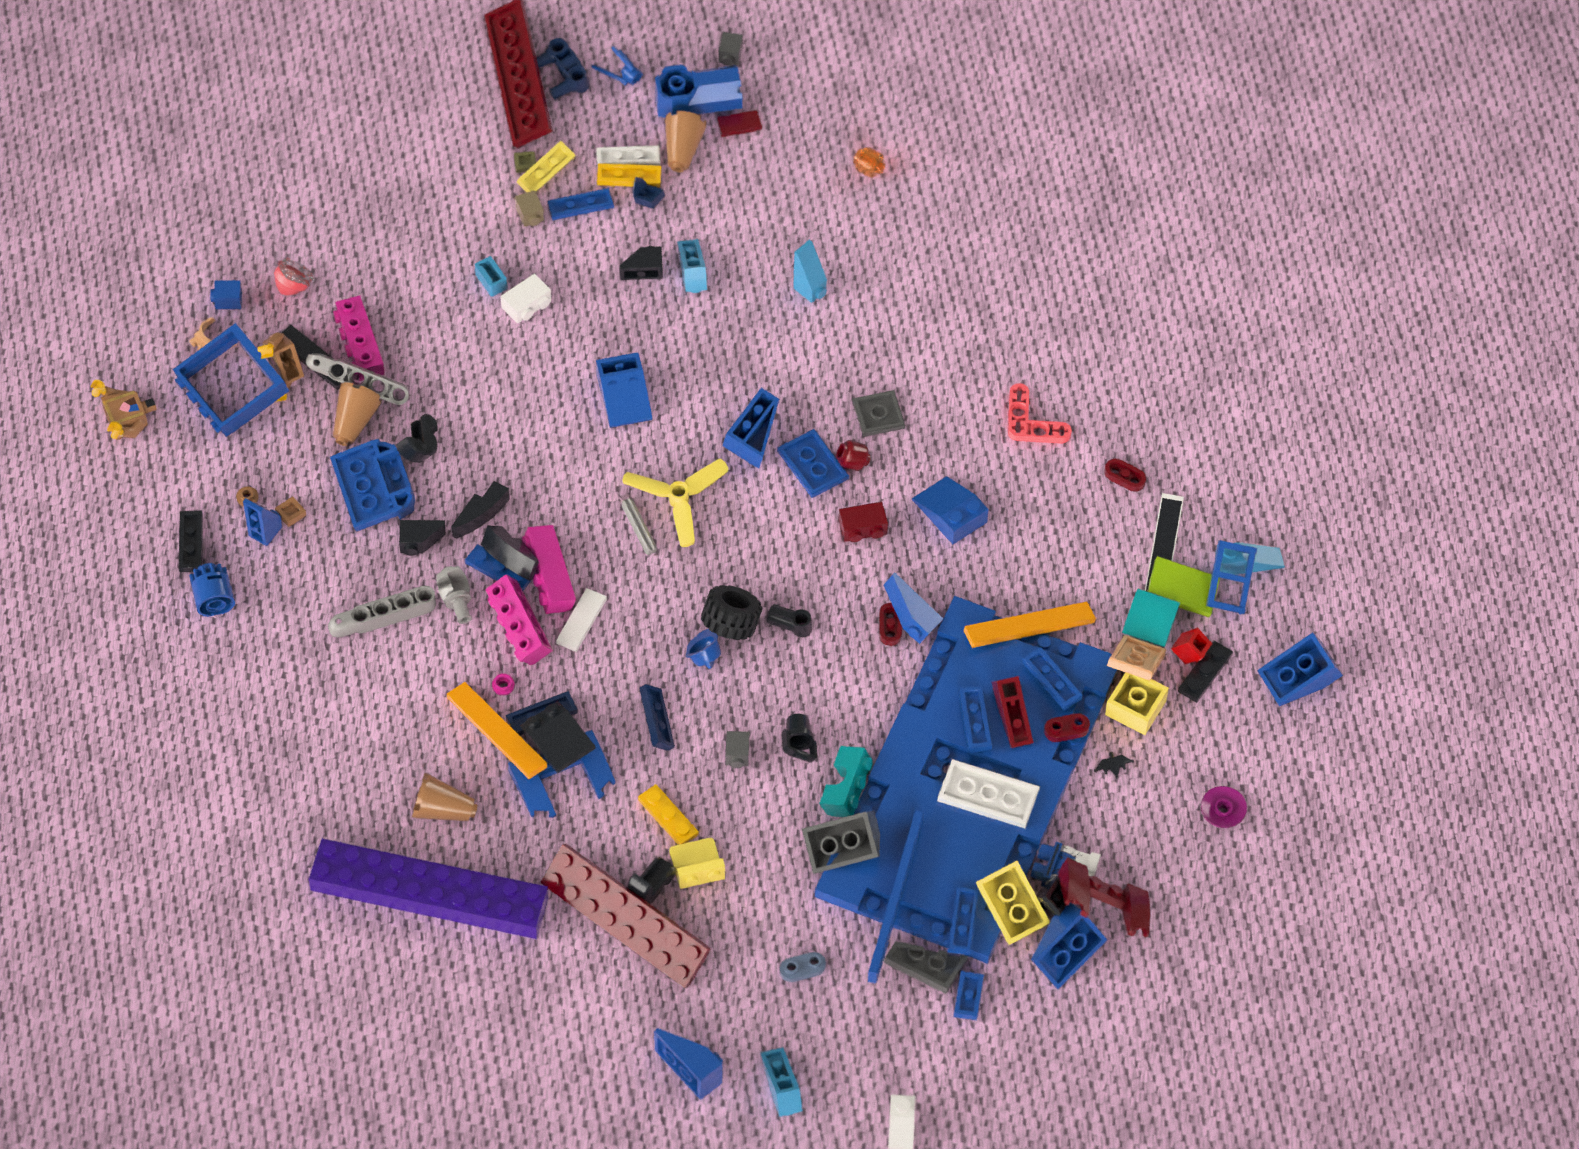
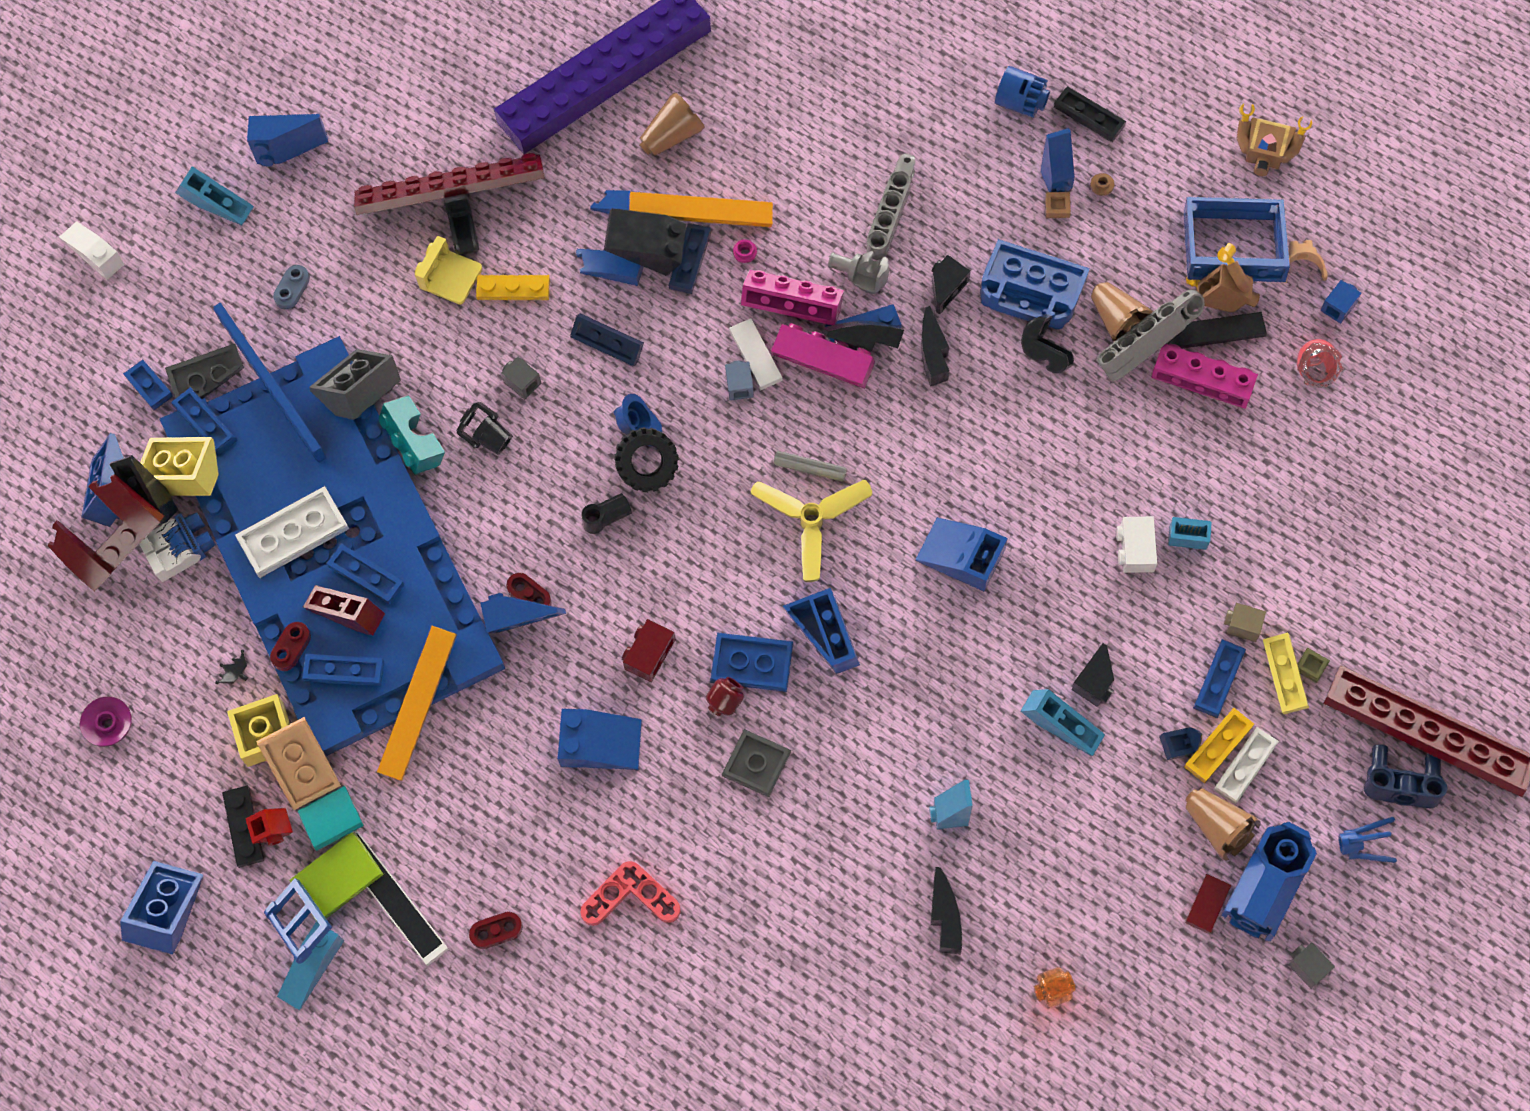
camera: 135 degrees right, 10 degrees up
(614, 610) = (739, 380): none -> sand blue brick
(878, 245) = (946, 914): none -> black slope

